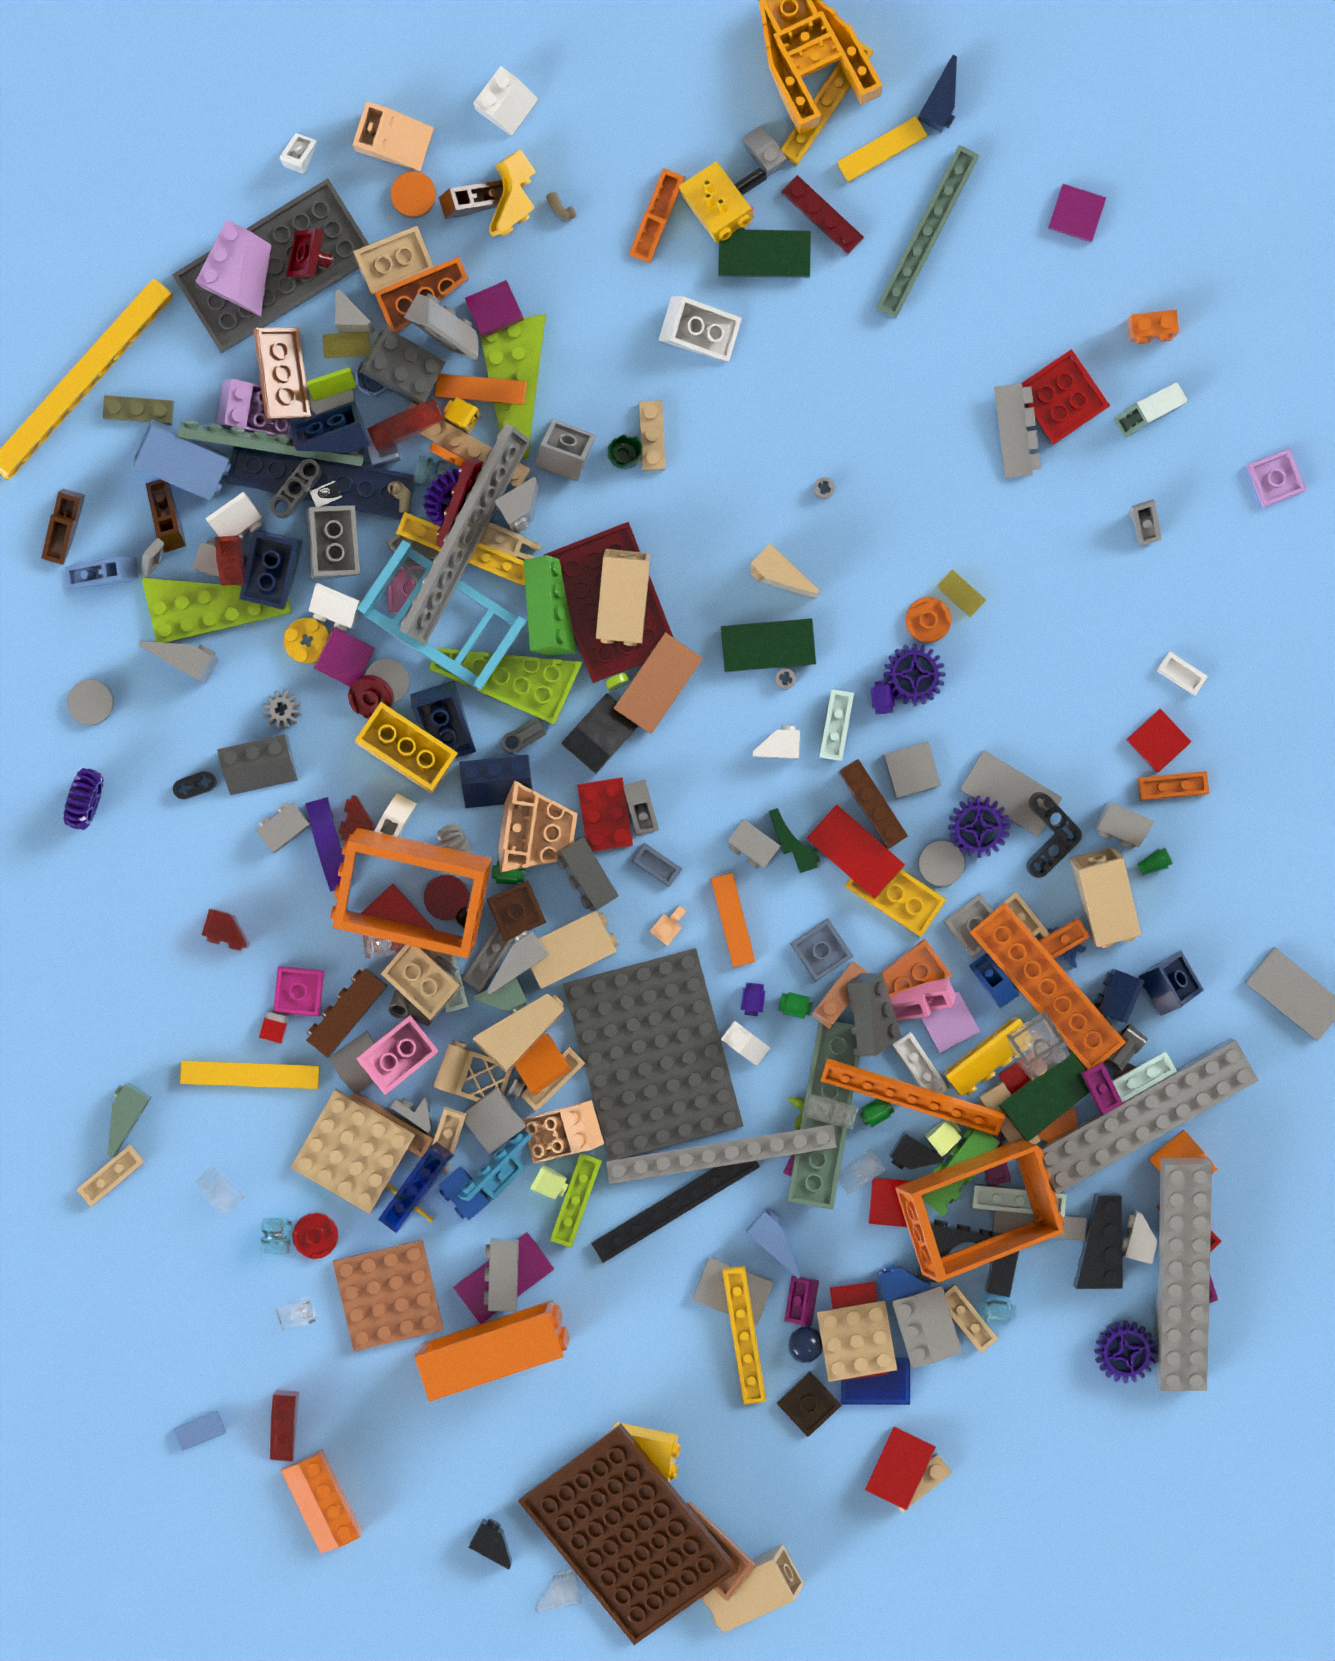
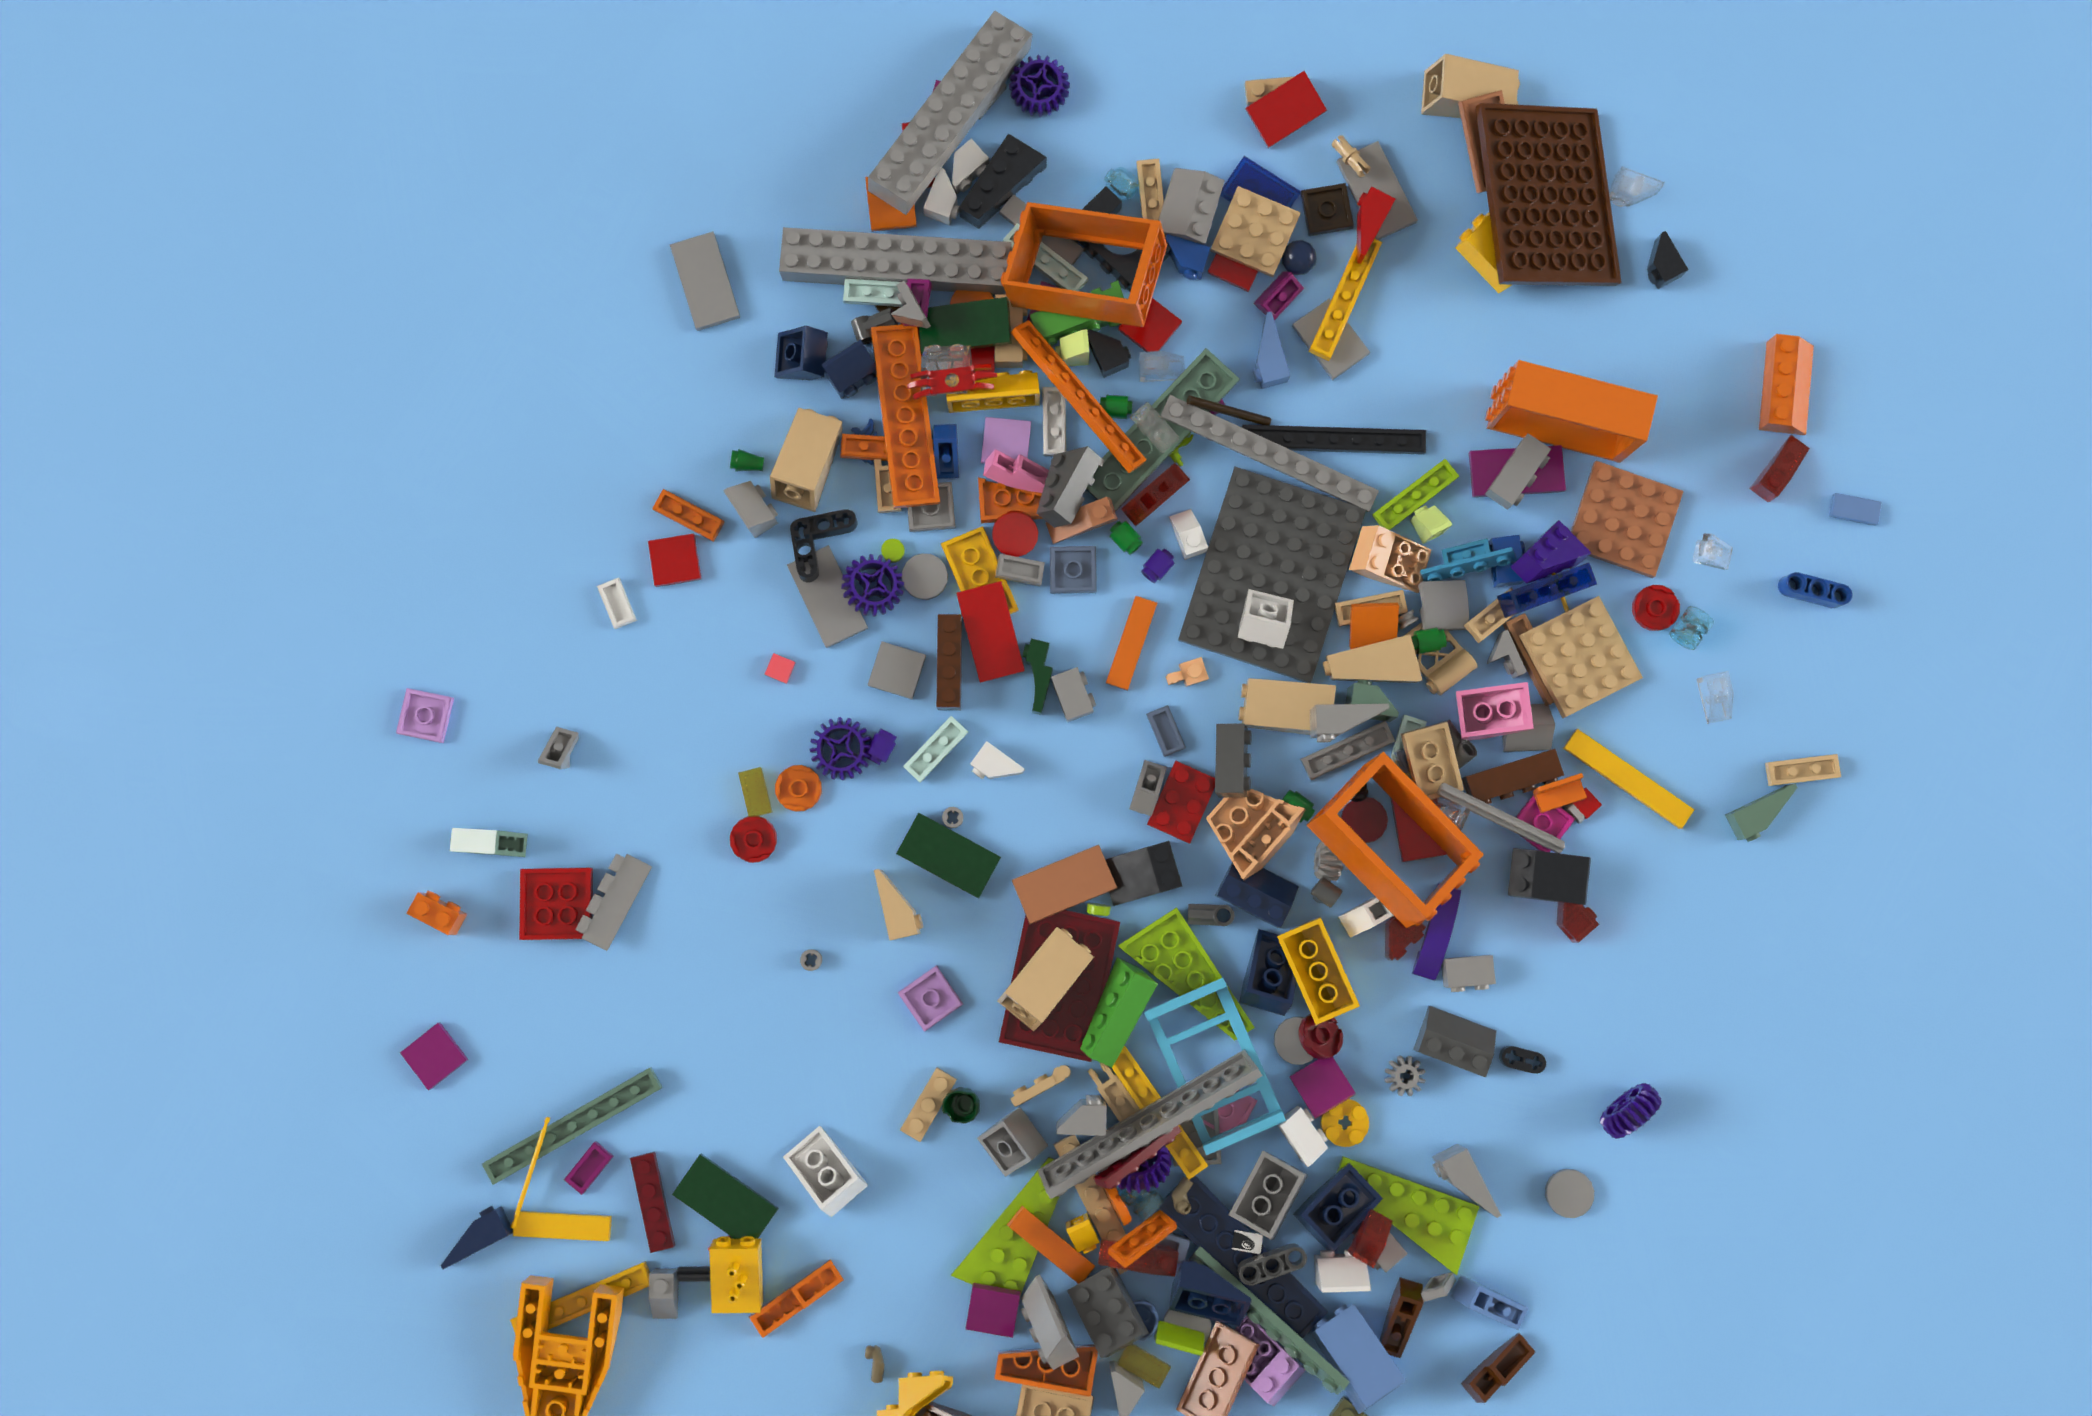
camera: 150 degrees left, 5 degrees down
(183, 1343) = (1825, 590): none -> blue beam
(266, 947) = (1549, 876): none -> black slope
(299, 1023) = (1559, 793): none -> orange panel
(335, 970) = (1501, 818): none -> light grey axle
(412, 441) = (1142, 1238): none -> orange tile
(432, 1221) = (1550, 554): none -> dark purple wedge
(440, 814) = (1325, 892): none -> dark grey piece
(488, 1081) = (1429, 640): none -> green brick
(516, 910) = (1311, 769): reddish brown tile -> none
(570, 511) = (1041, 1085): none -> tan hinge
(634, 1010) = (1266, 619): none -> white slope
(706, 521) = (930, 998): none -> lavender tile
(766, 1418) = (1370, 217): none -> red slope
(776, 1448) = (1382, 178): none -> light grey tile
(778, 1168) = (1228, 410): none -> dark brown bar
(794, 1058) = (1155, 494): none -> clear red slope
(818, 1462) = (1351, 156): none -> tan pin
(865, 920) = (1019, 570): none -> light grey tile
(889, 947) = (1015, 533): none -> red tile
(891, 207) = (588, 1167): none -> magenta tile
(935, 172) = (530, 1172): none -> yellow piece
(937, 554) = (753, 839): none -> red tile
(982, 867) = (893, 550): none -> lime tile
(1009, 708) = (780, 668): none -> coral tile
(1015, 1047) = (966, 380): none -> red piece
(1098, 1075) = (911, 311): none -> light grey slope
(1141, 1195) = (942, 200): none -> white slope

